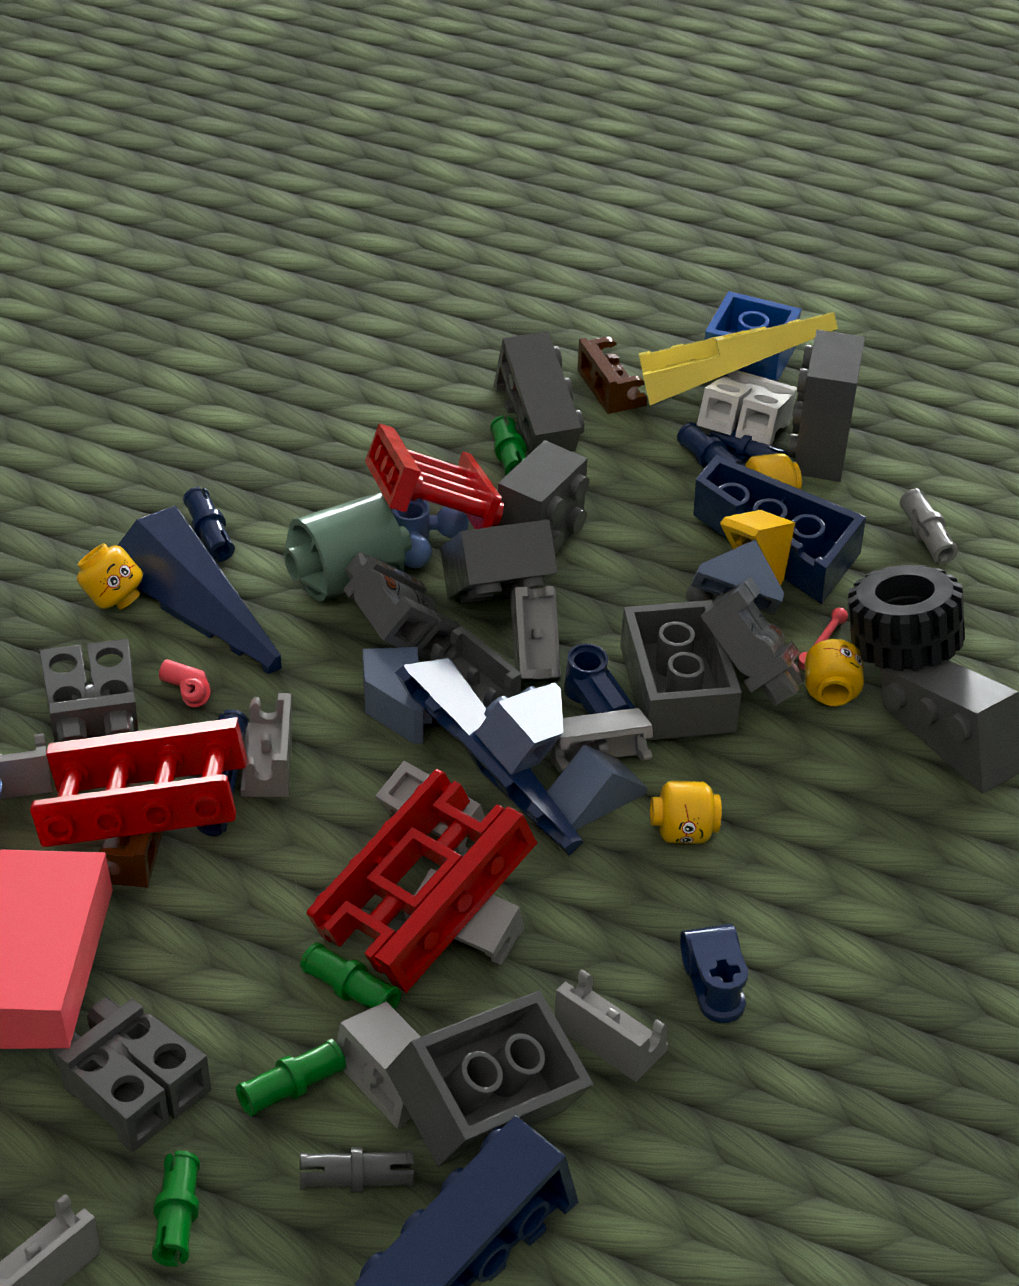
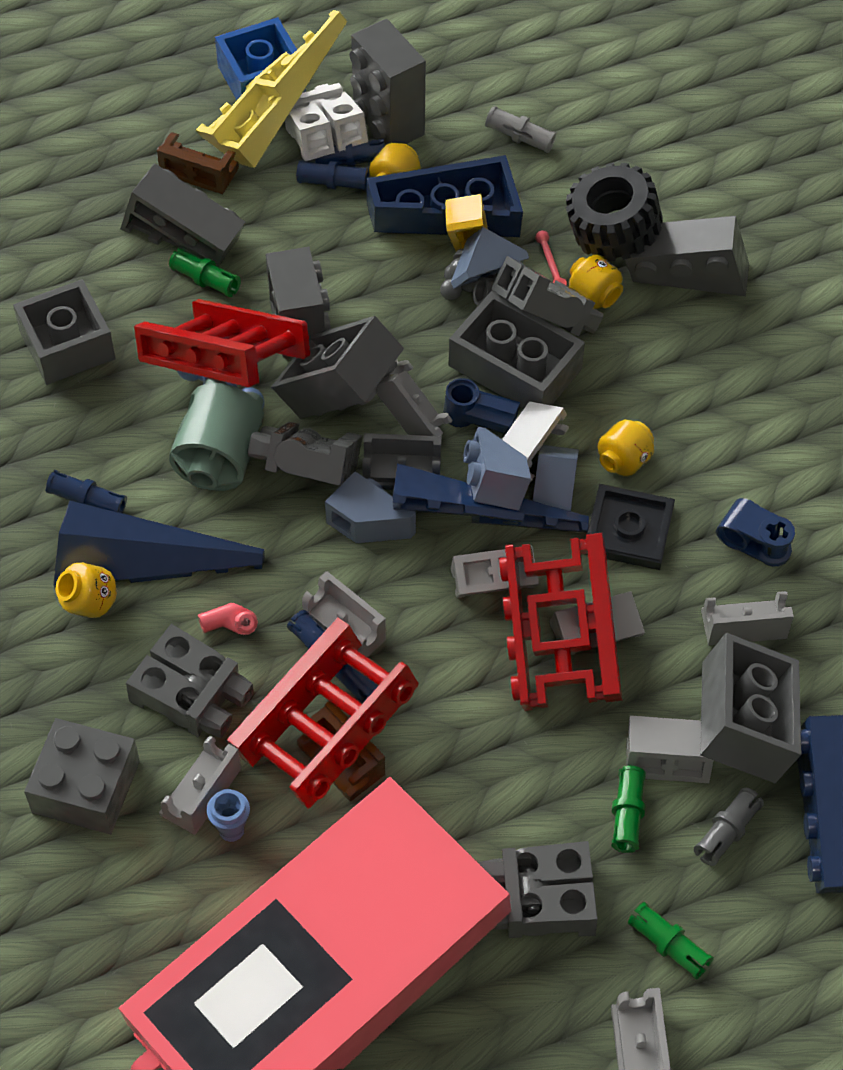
camera: 45 degrees left, 15 degrees up
(339, 407) = (64, 331): none -> dark grey brick
(348, 978) = (583, 721): green pin -> none
(609, 877) = (632, 525): none -> black tile

